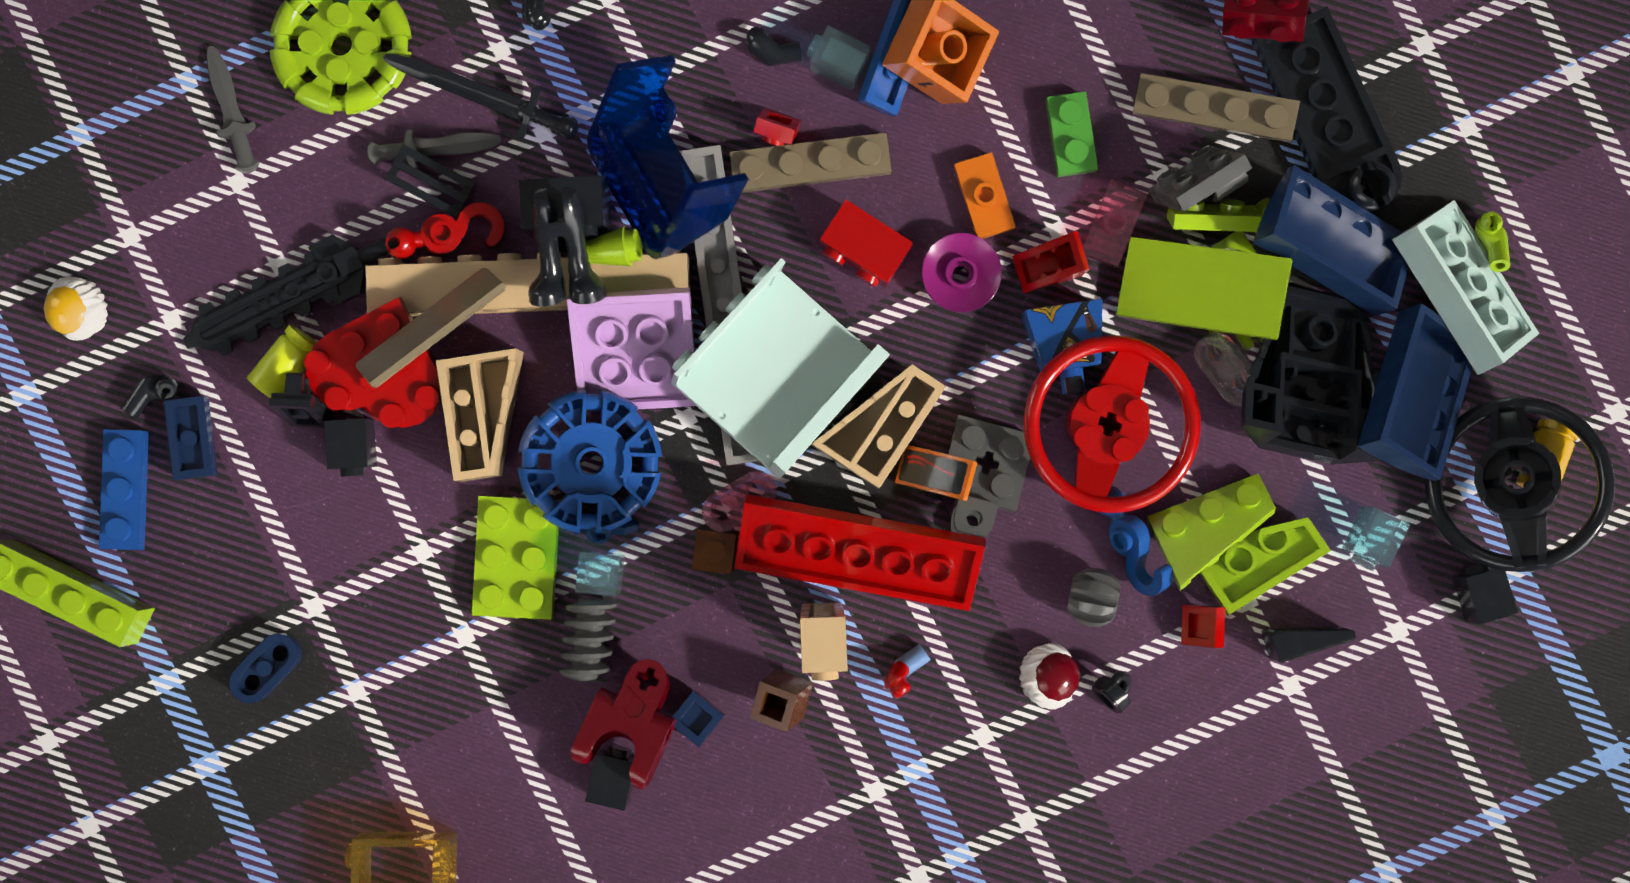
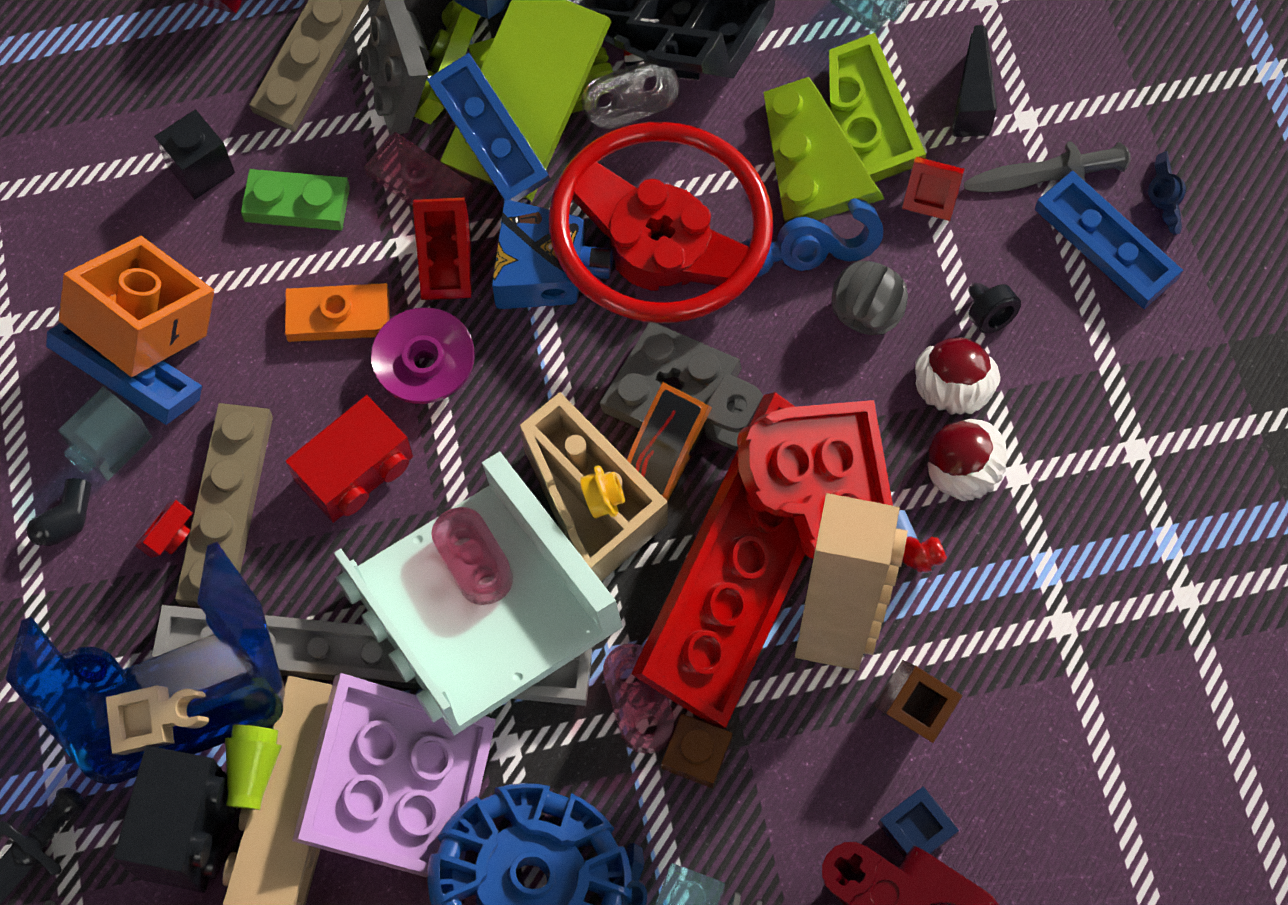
camera: 75 degrees left, 20 degrees down
(550, 284) = (281, 812): black piece -> none
(620, 169) = (149, 717): none -> tan plate
(804, 358) = (473, 559): none -> clear pink plate
(868, 440) = (602, 492): none -> yellow plate
(932, 594) = (810, 451): none -> plate
(983, 697) = (967, 459): none -> hair
(1085, 45) = (195, 154): none -> black brick
(1158, 268) = (488, 129): none -> blue plate
(1194, 769) = (1108, 239): none -> blue plate
(1250, 809) = (1167, 193): none -> dark blue piece
(1254, 727) = (1027, 174): none -> dark grey sword

